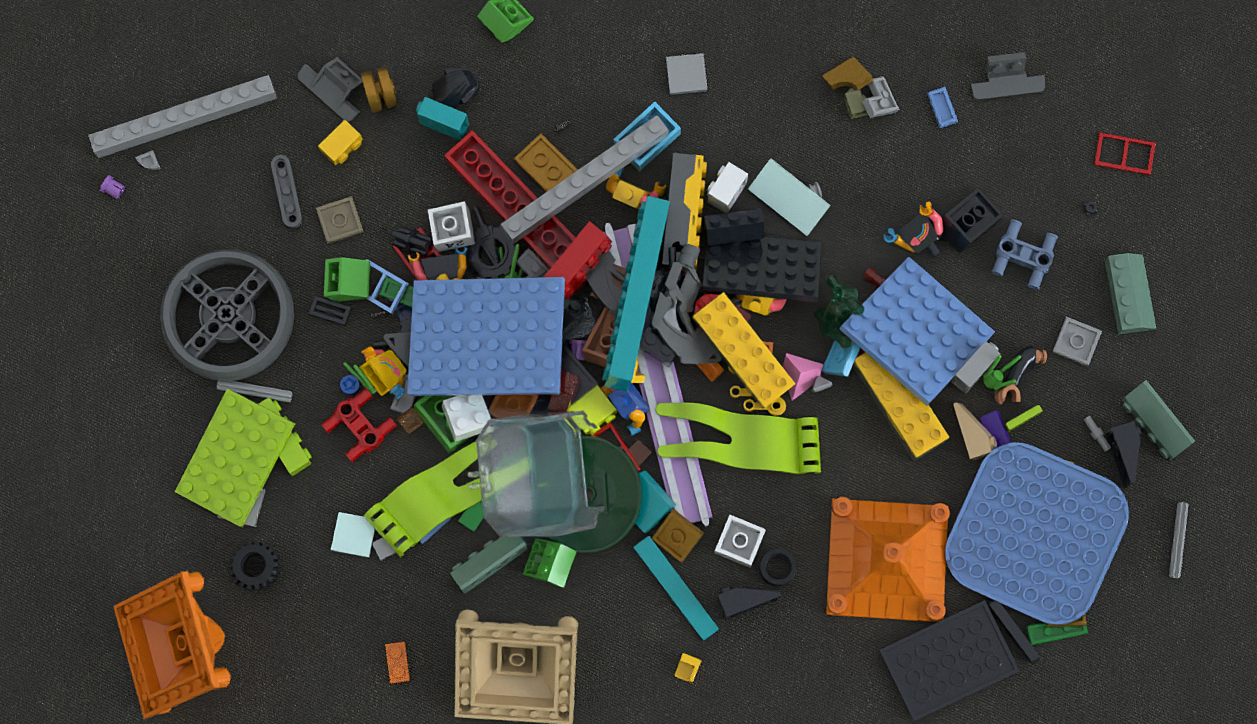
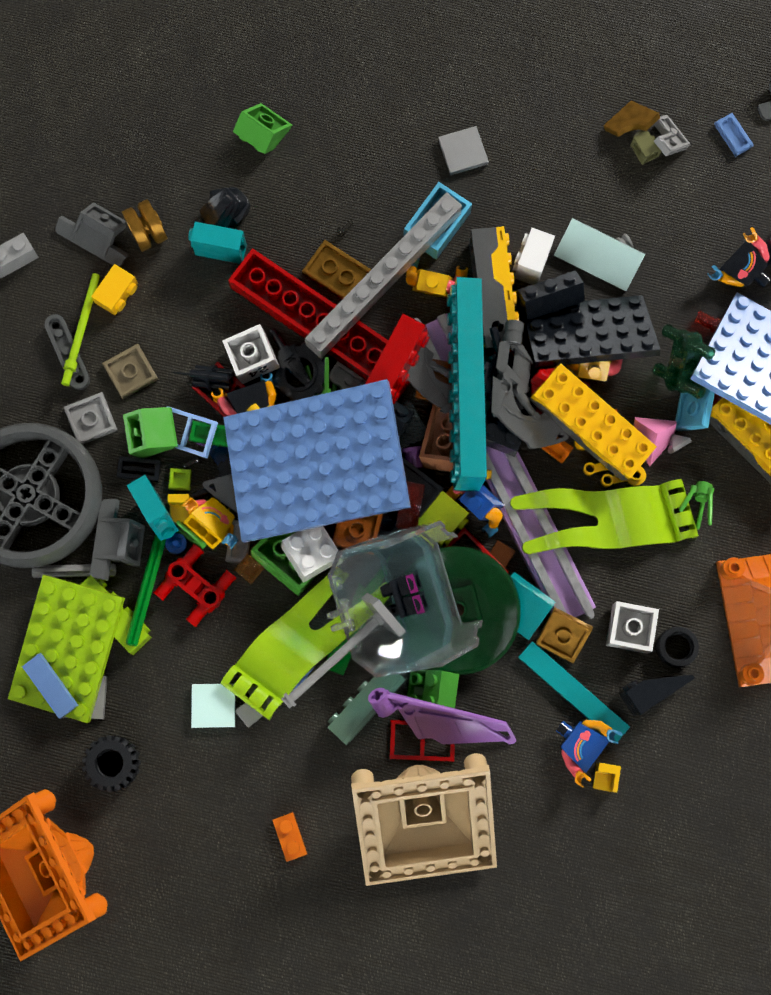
camera: 15 degrees left, 0 degrees up
(214, 487) = (50, 686): none -> medium blue tile
(287, 203) = (71, 364): none -> lime bar
(295, 256) = (90, 418): none -> light grey tile
(296, 371) = (115, 540): none -> dark grey plate
(316, 417) = (145, 592): none -> green axle
(335, 349) = (152, 508): none -> teal brick
(356, 357) = (178, 512): none -> yellow panel
(364, 327) = (180, 479): none -> lime tile
(515, 485) = (381, 617): none -> light grey tile
(528, 617) = (422, 747): none -> red window
(542, 479) = (405, 604): none -> black hips
(550, 588) = (439, 721): none -> medium lavender wing
(673, 635) = (584, 745): none -> torso
(832, 435) = (702, 491): none -> bright green plant

